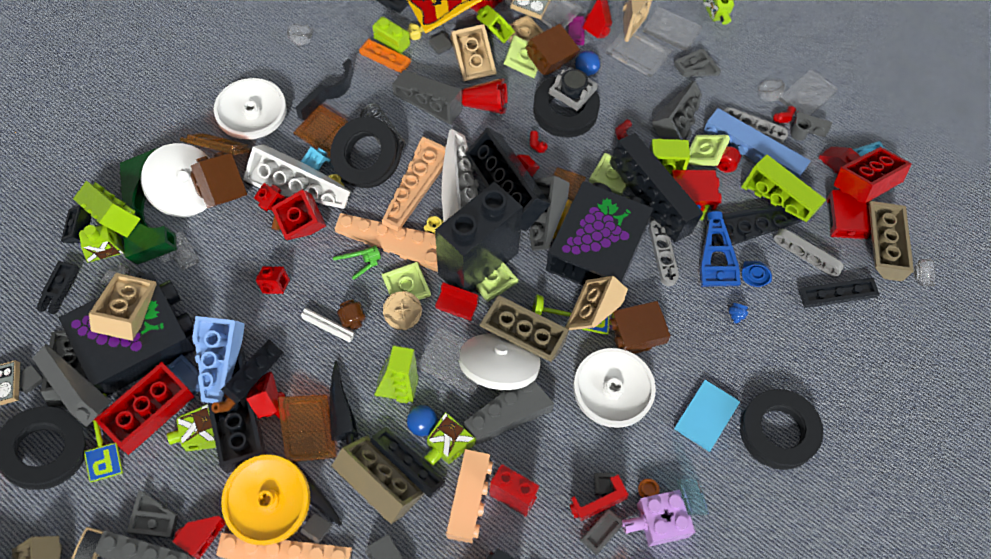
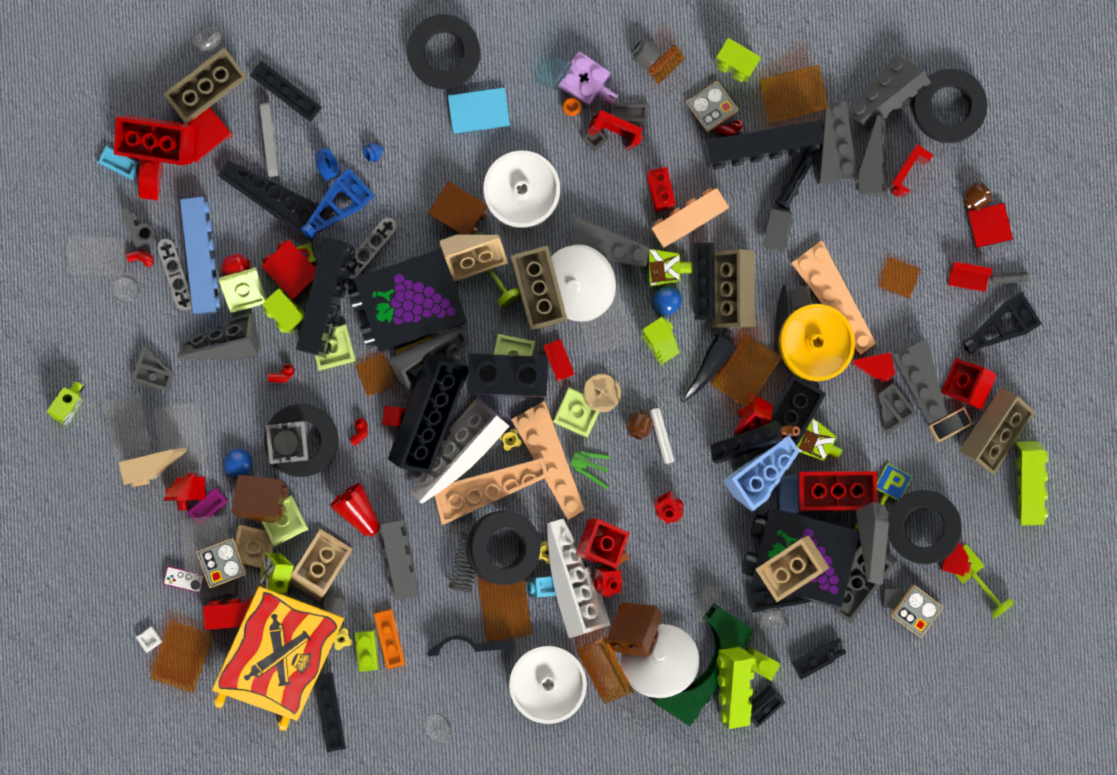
camera: 135 degrees left, 25 degrees up
(783, 189) = (232, 197): lime wedge -> none

